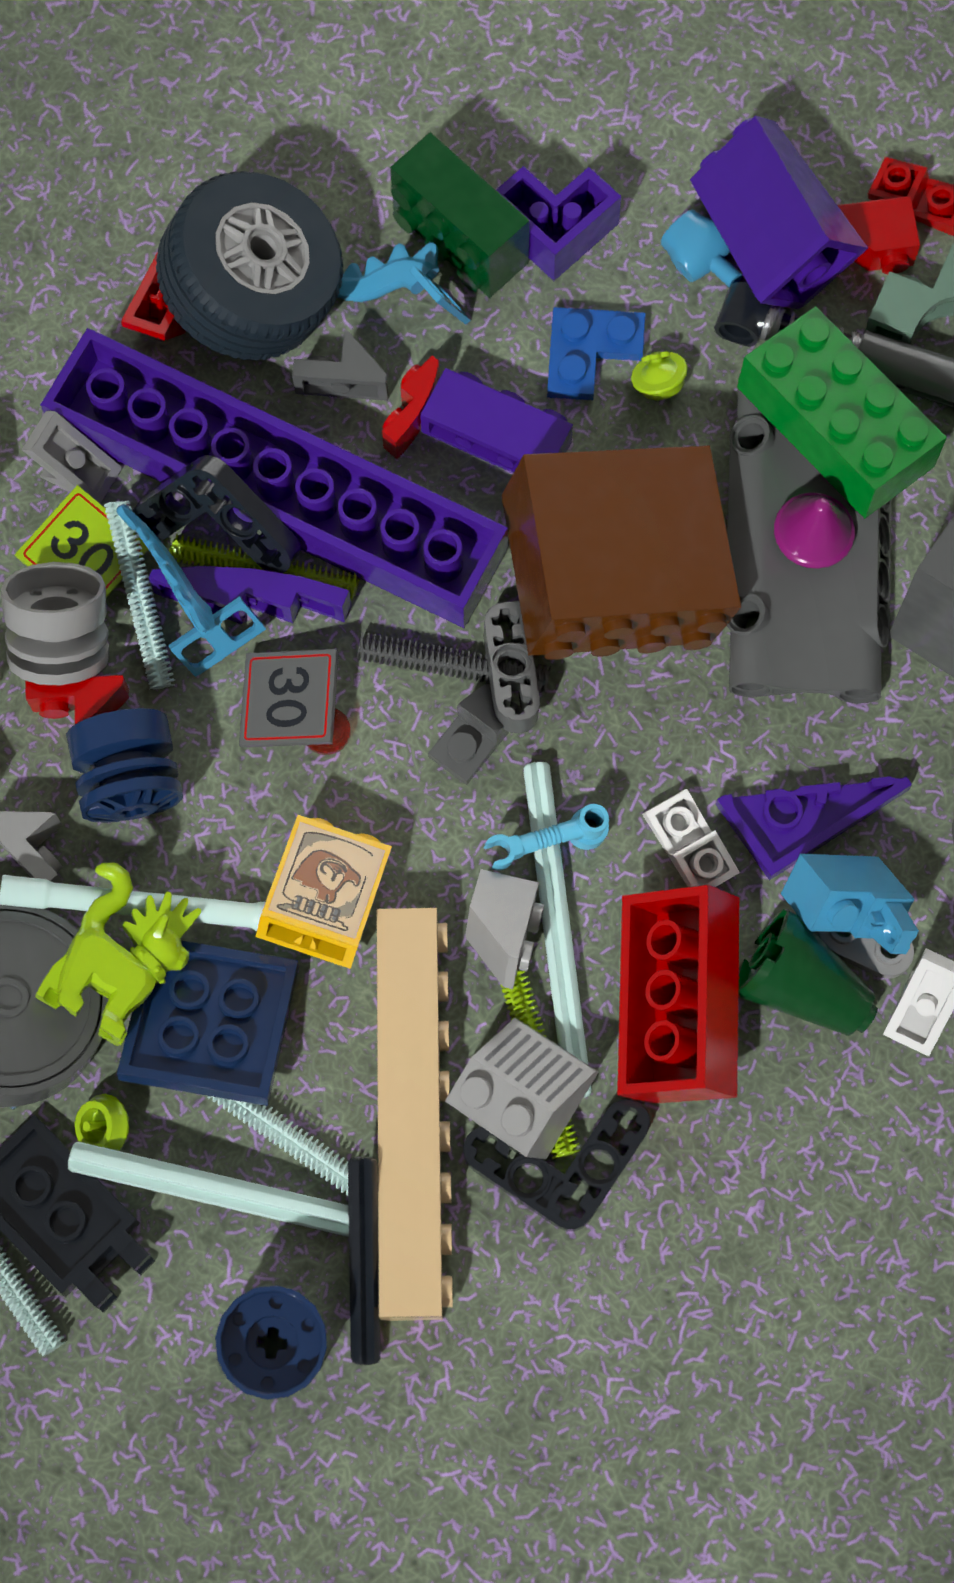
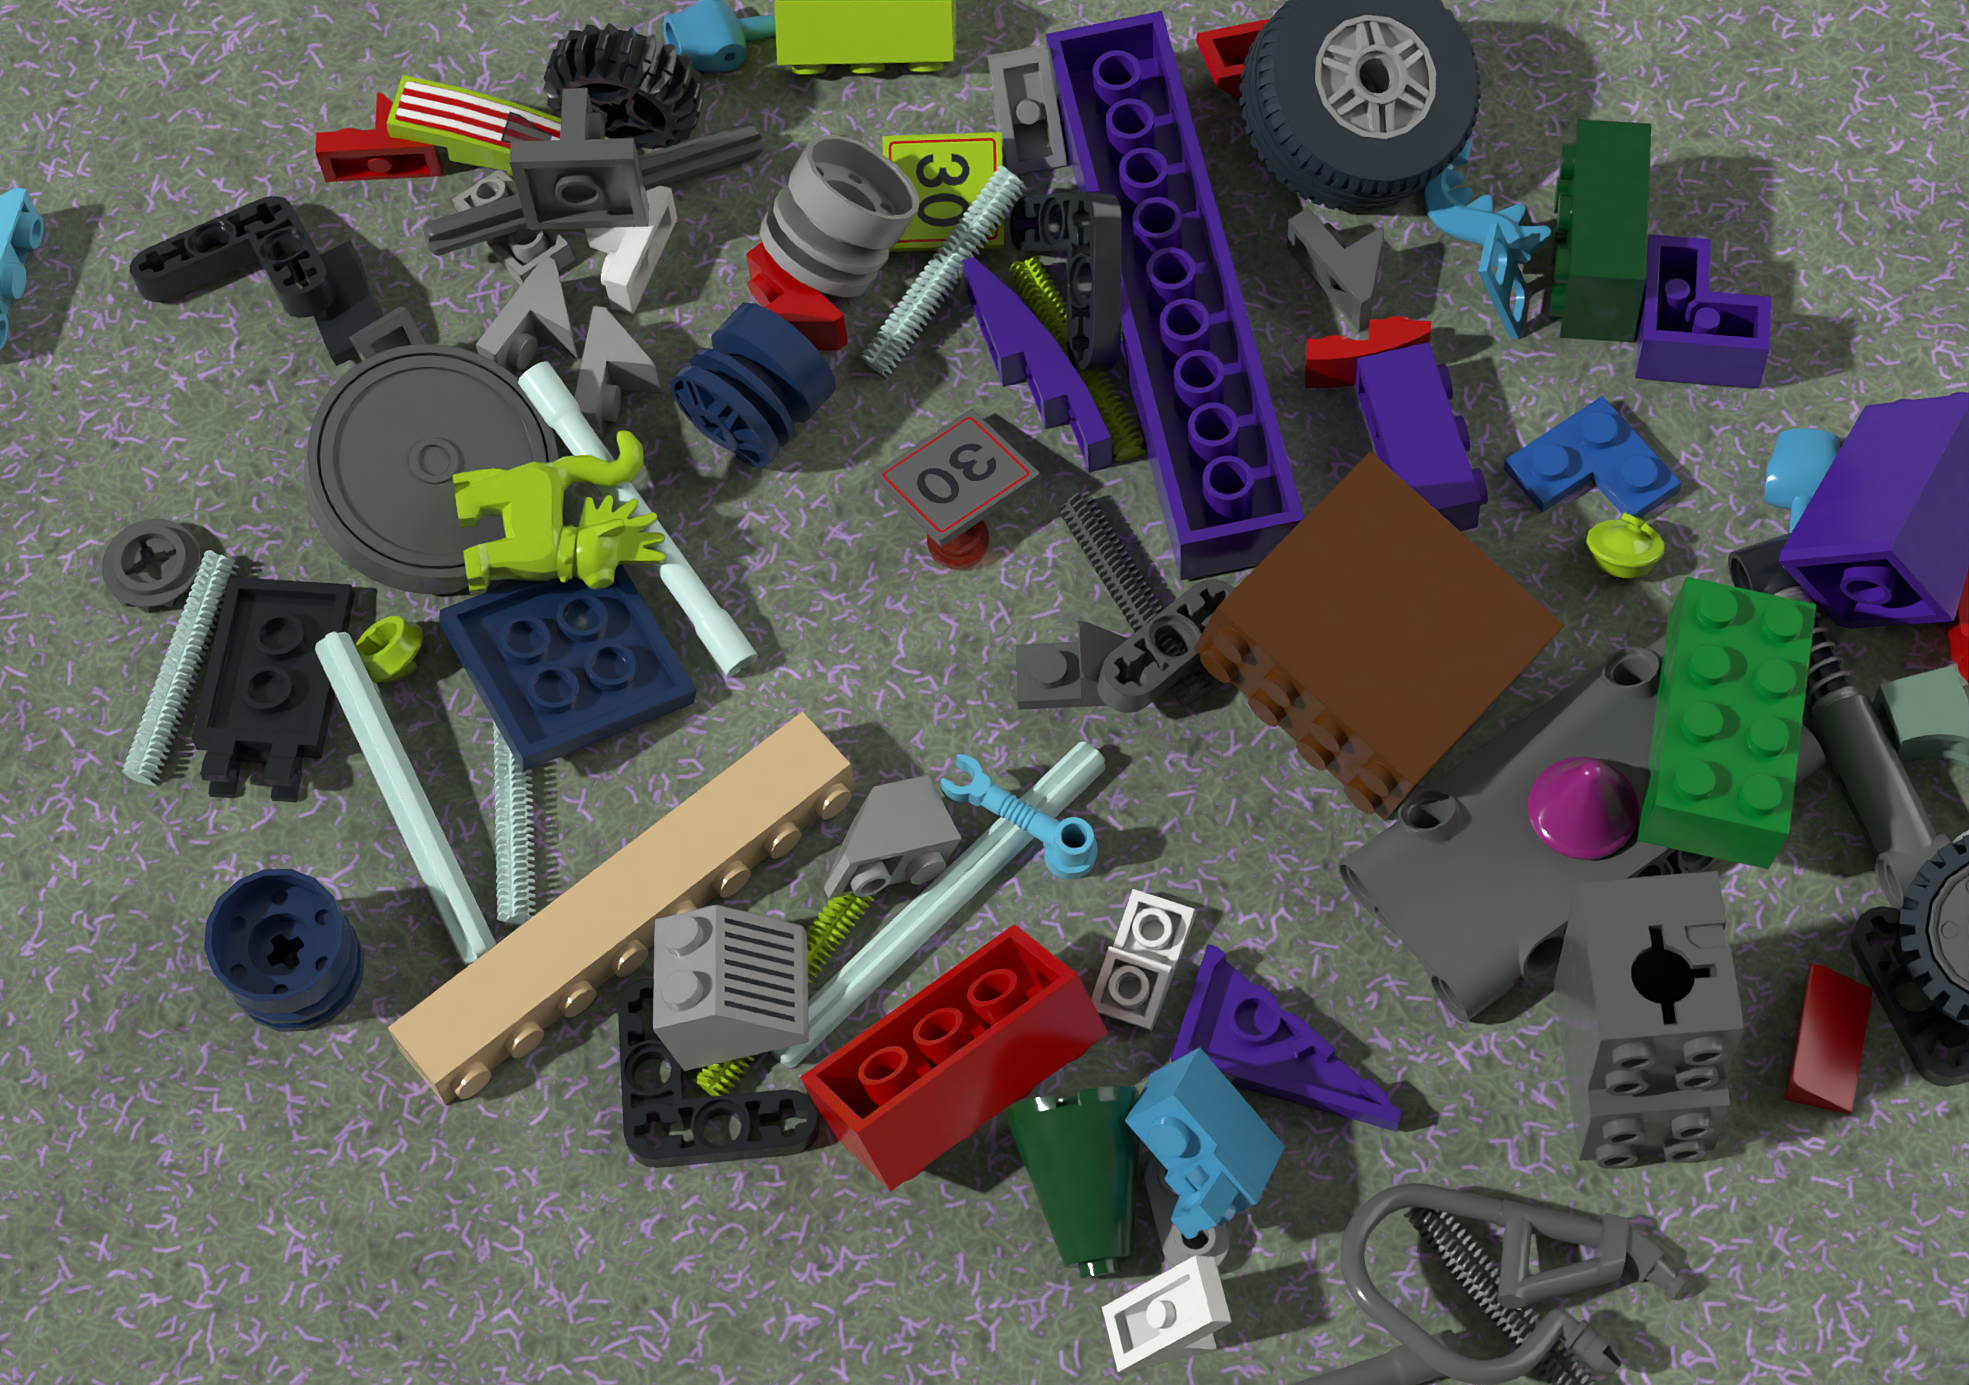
camera: 55 degrees right, 10 degrees down
(198, 611) = (962, 322): dark azure piece -> none
(323, 891) = (781, 651): brick -> none
(364, 1260) = (485, 931): black axle -> none

